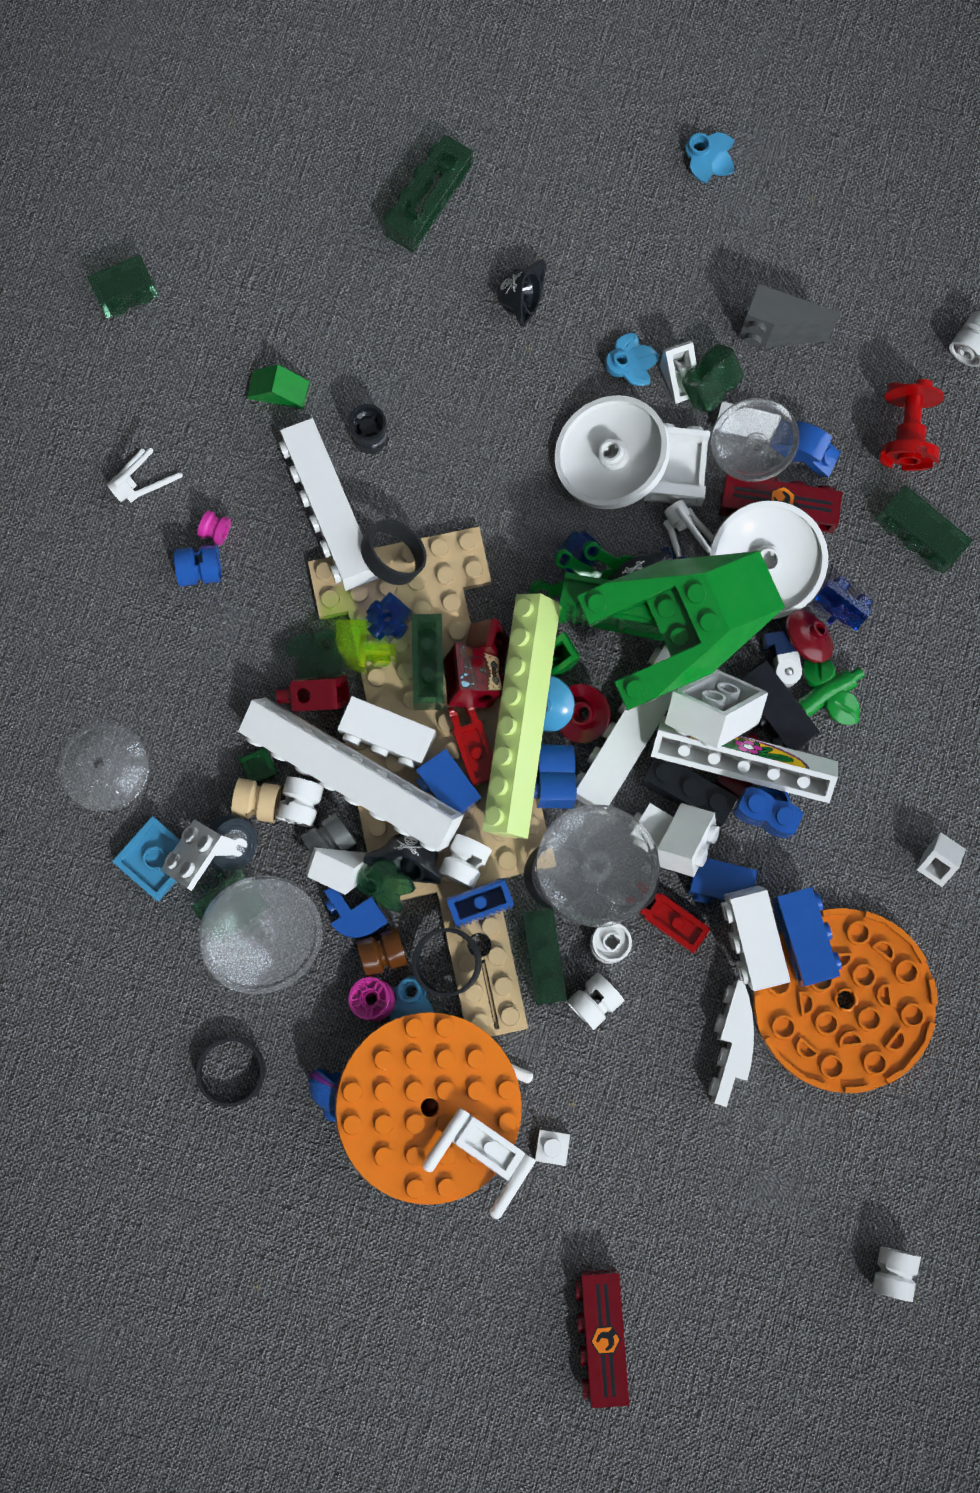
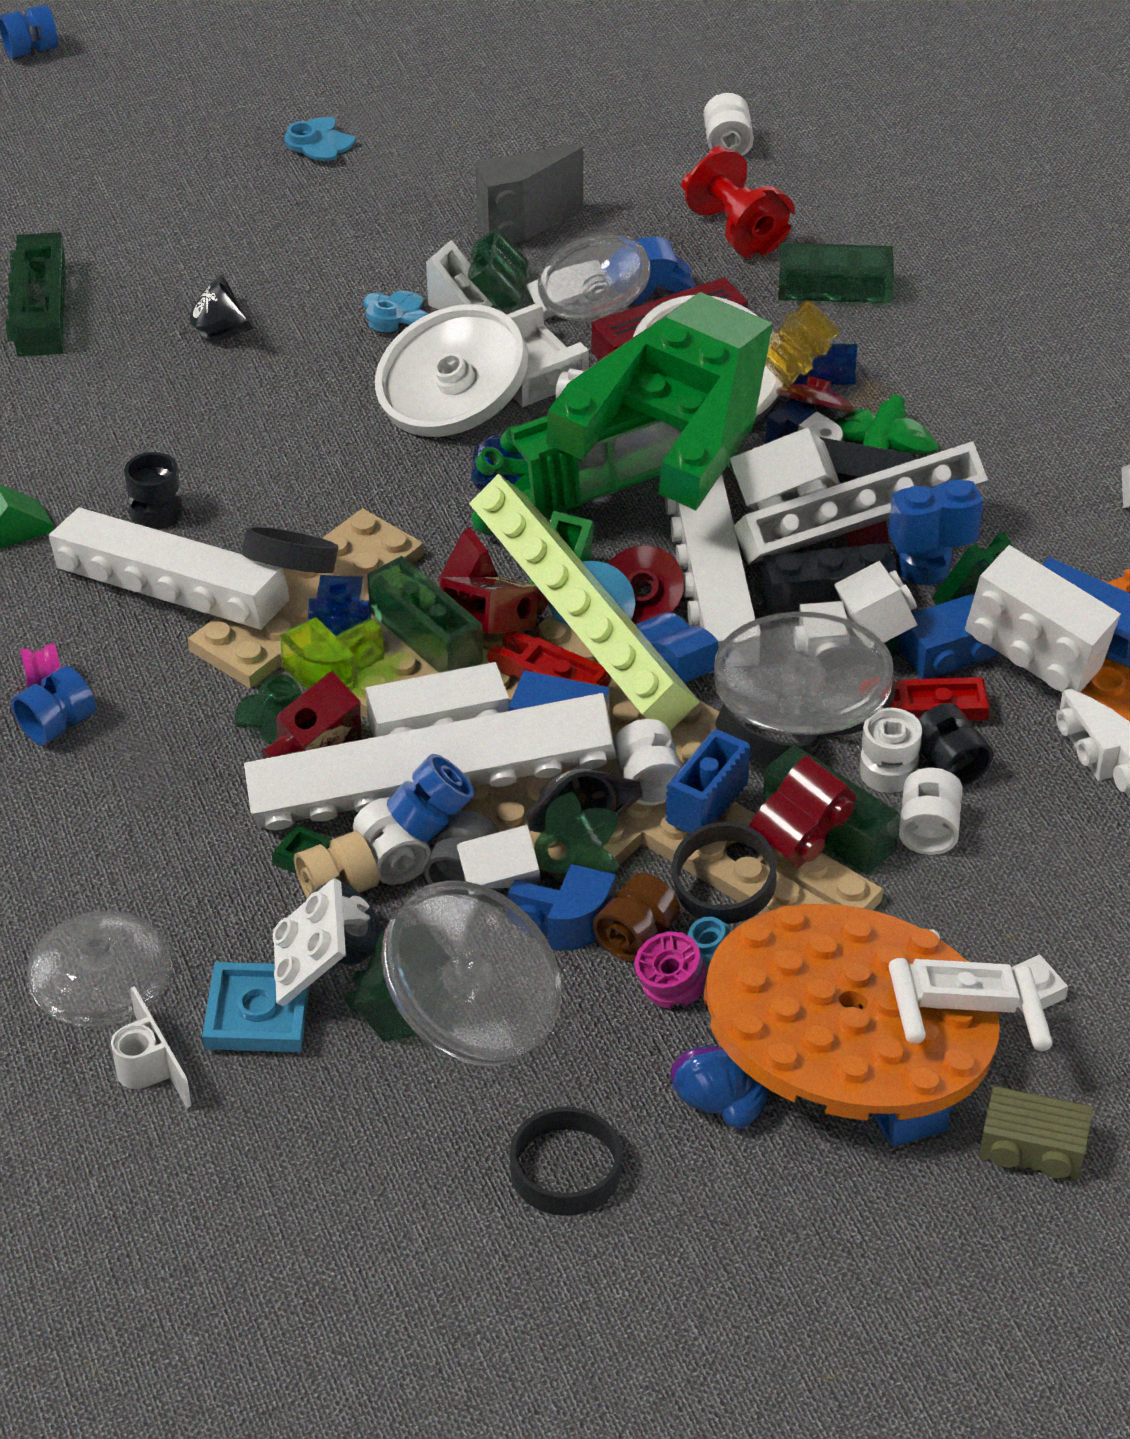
camera: 35 degrees left, 35 degrees down
(86, 851) = (144, 1055): none -> white piece
(323, 806) = (435, 792): none -> blue wheel
(465, 1242) = (1036, 1132): none -> olive brick
(511, 964) = (804, 811): none -> dark red brick
(647, 975) = (954, 744): none -> black wheel
(763, 862) = (966, 573): none -> dark green hinge
(822, 599) = (799, 342): none -> clear yellow gear

